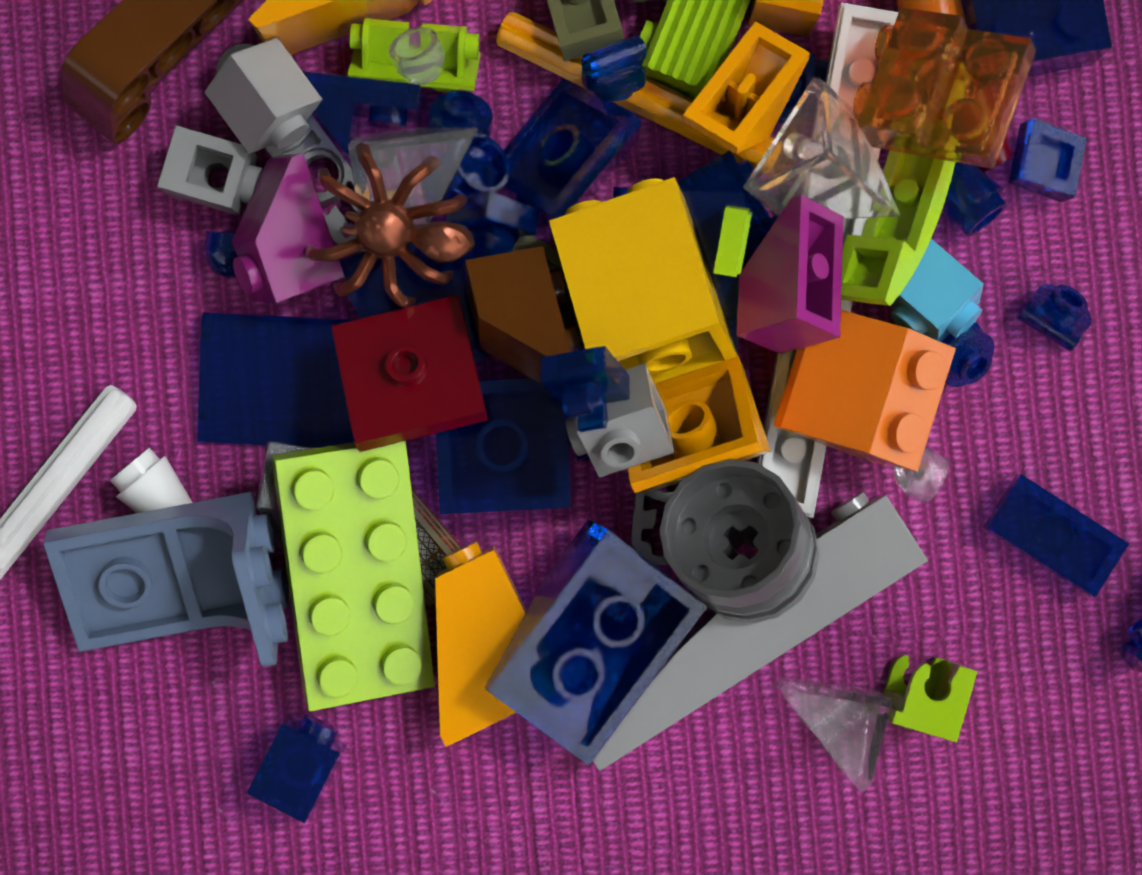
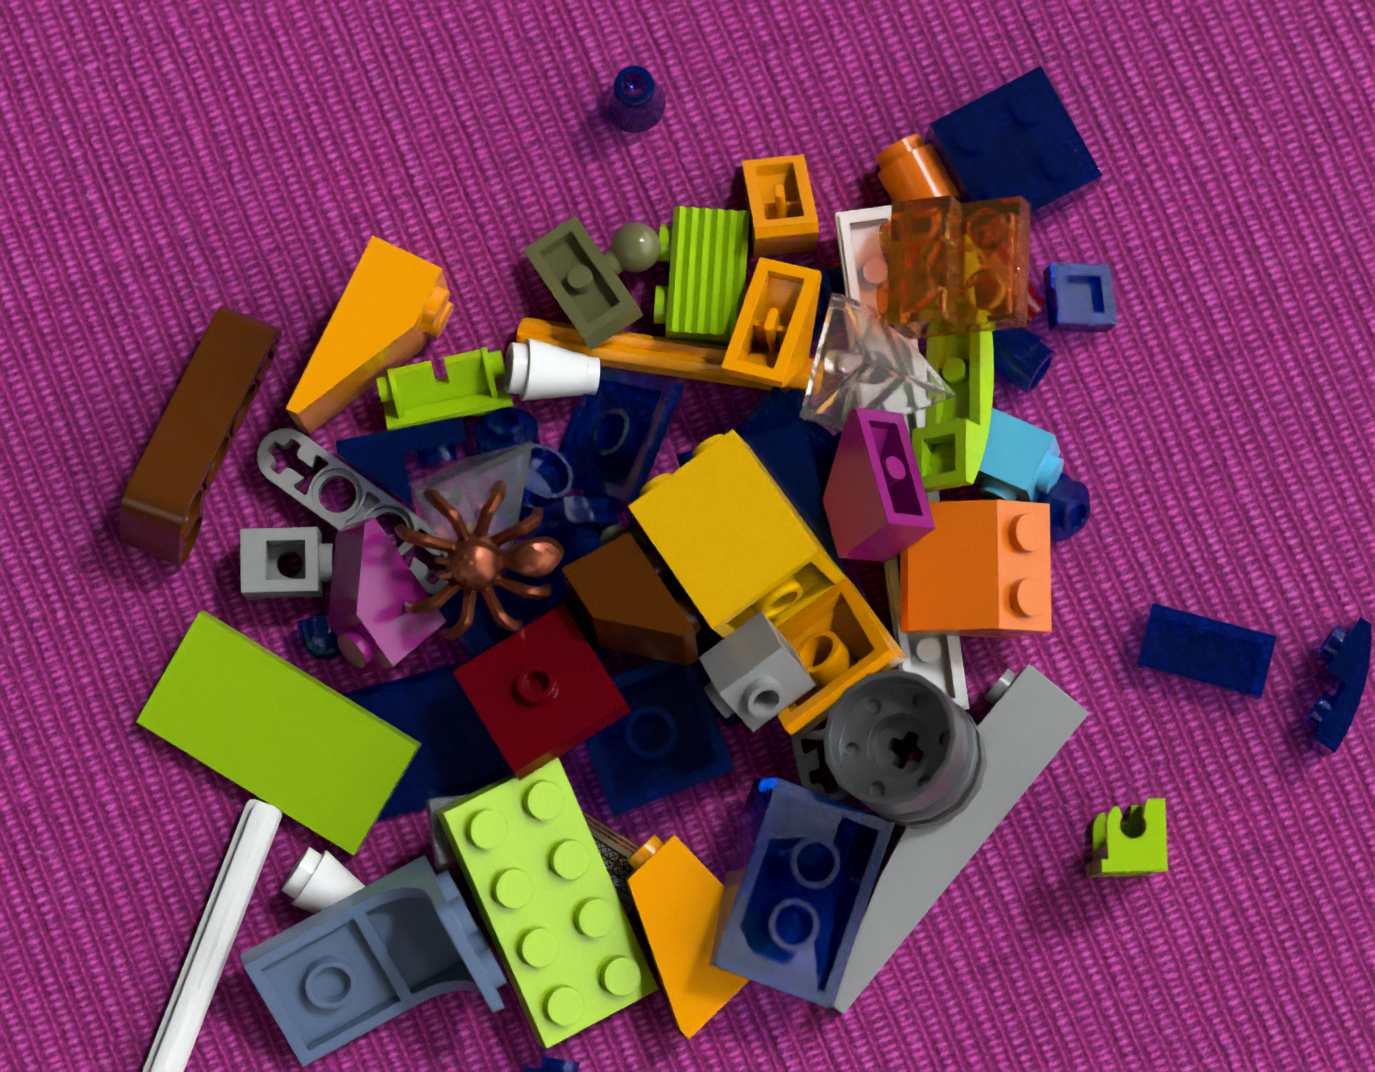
camera: 20 degrees left, 5 degrees down
(155, 330) = (278, 732): none -> lime tile
(264, 96) = (318, 475): light grey brick -> none
(418, 55) = (450, 389): clear hinge -> none
(519, 69) = (548, 371): none -> white cone
(585, 383) = (713, 646): clear blue tile -> none
(615, 69) = (642, 343): clear blue plate -> none
(732, 241) = (806, 470): lime tile -> none
(844, 720) = (1059, 894): clear slope -> none
(928, 479) = (1064, 637): clear hinge -> none
(1058, 314) = (1138, 440): clear blue plate -> none

